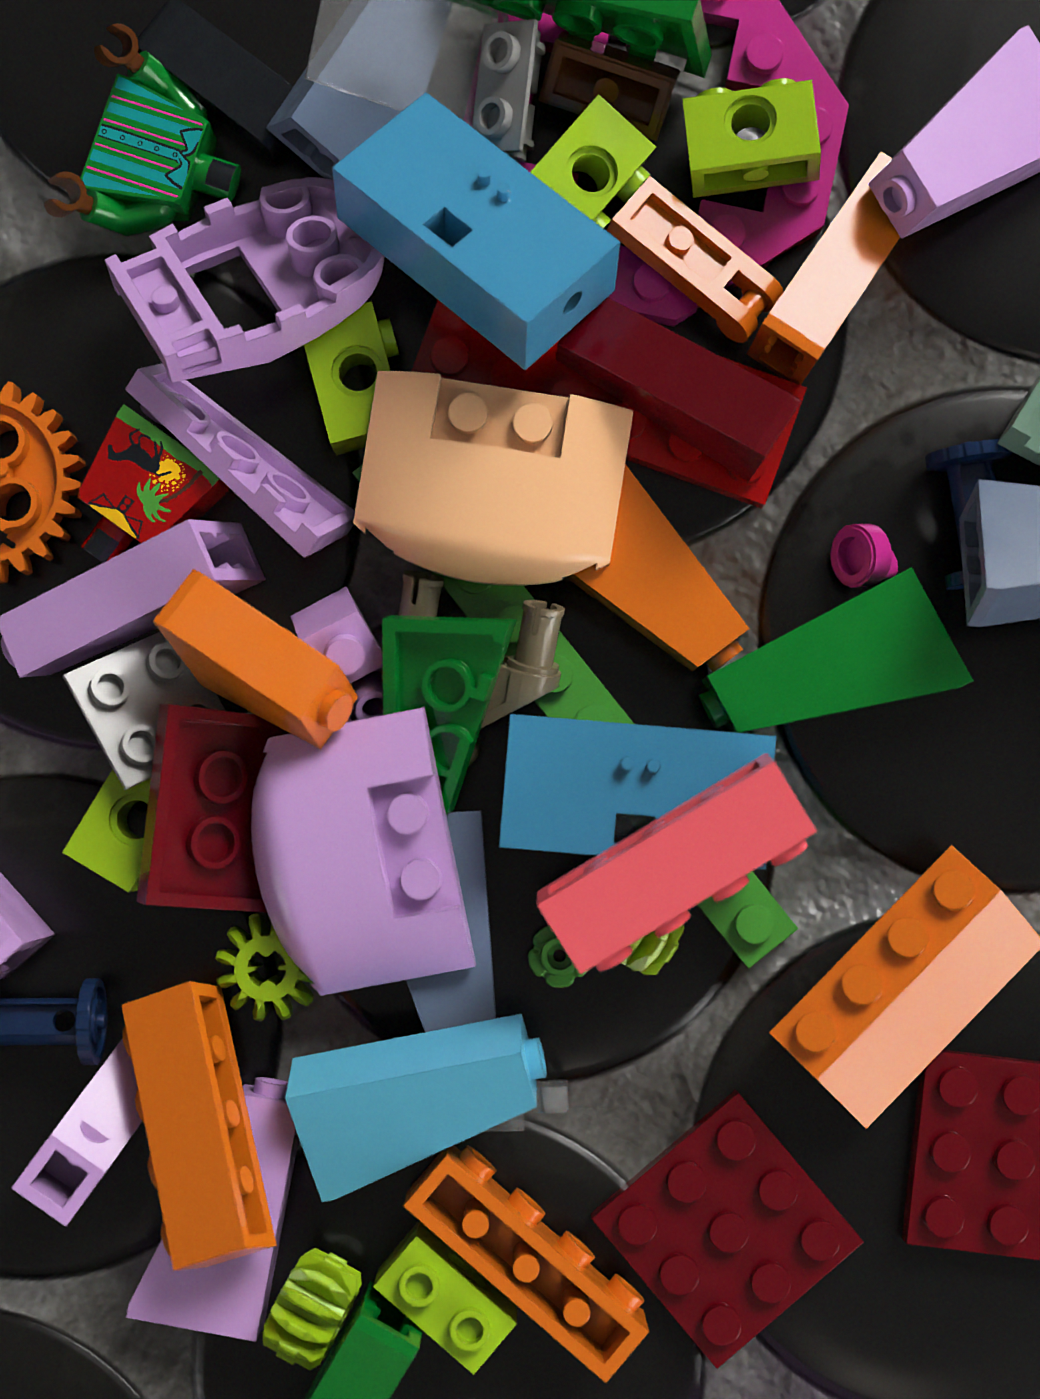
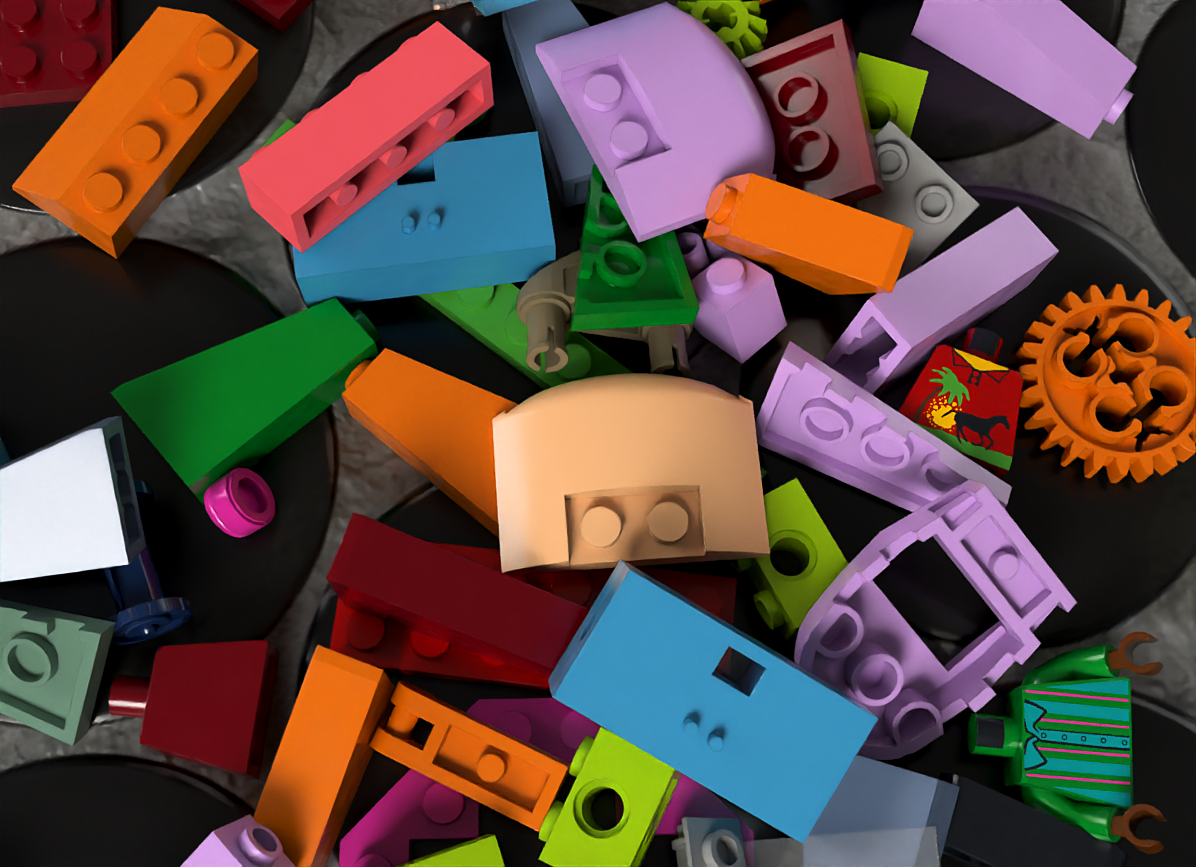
camera: 165 degrees right, 15 degrees down
(926, 369) = (204, 703): none -> dark red torso

